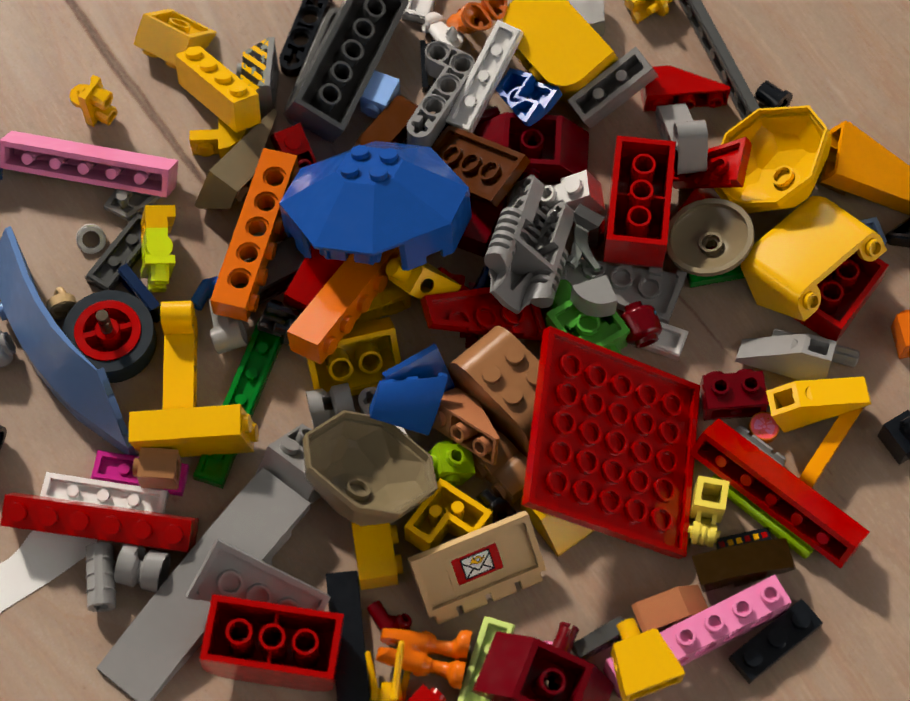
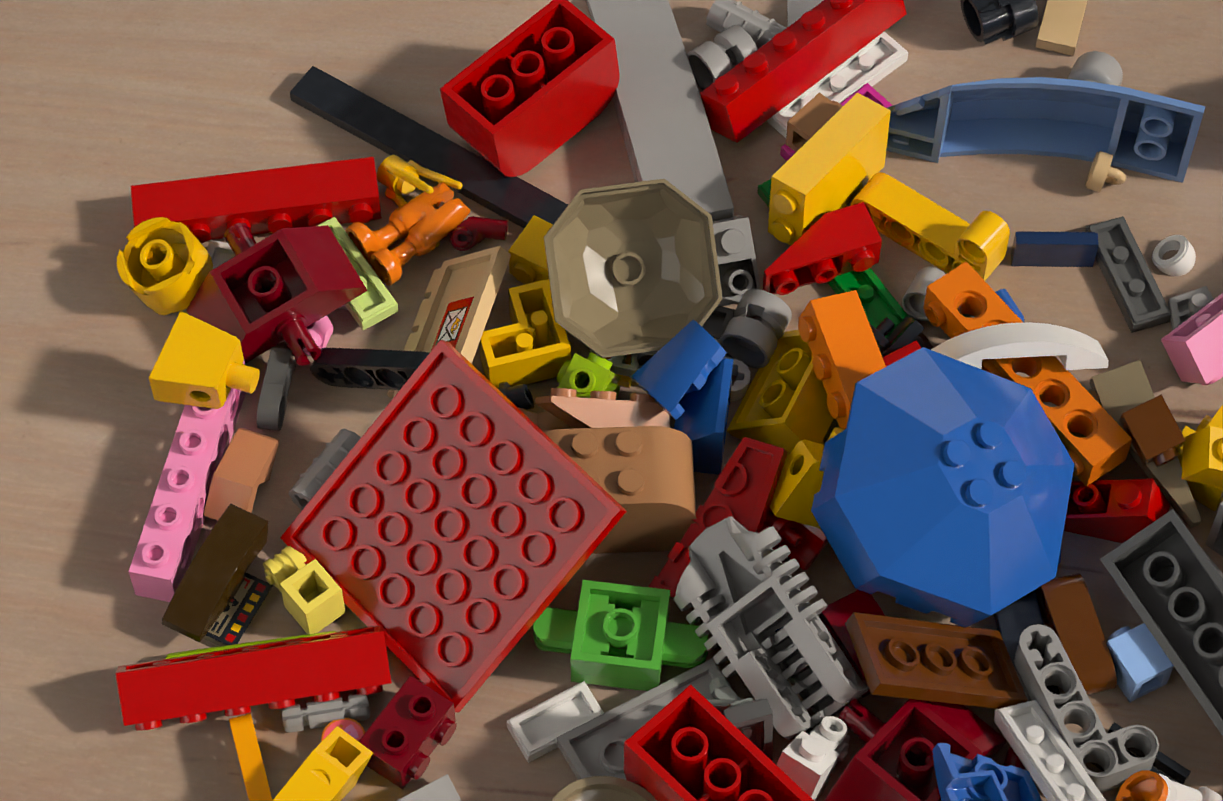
camera: 130 degrees right, 5 degrees down
(113, 333) = (1022, 177): wheel -> none
(157, 246) = (1094, 280): neon yellow hips -> none
(240, 575) = (605, 124): light grey wing -> none
(249, 140) = (1153, 431): none -> reddish brown brick
(255, 233) = (1025, 340): none -> white slope
(258, 400) = (831, 247): none -> red slope
(543, 572) = (366, 367): none -> black beam
(594, 297) = (635, 637): light grey brick -> none
(624, 562) = (323, 467): none -> light grey axle
(643, 324) = (574, 692): dark red head -> none
(775, 641) = (116, 541): black plate -> none

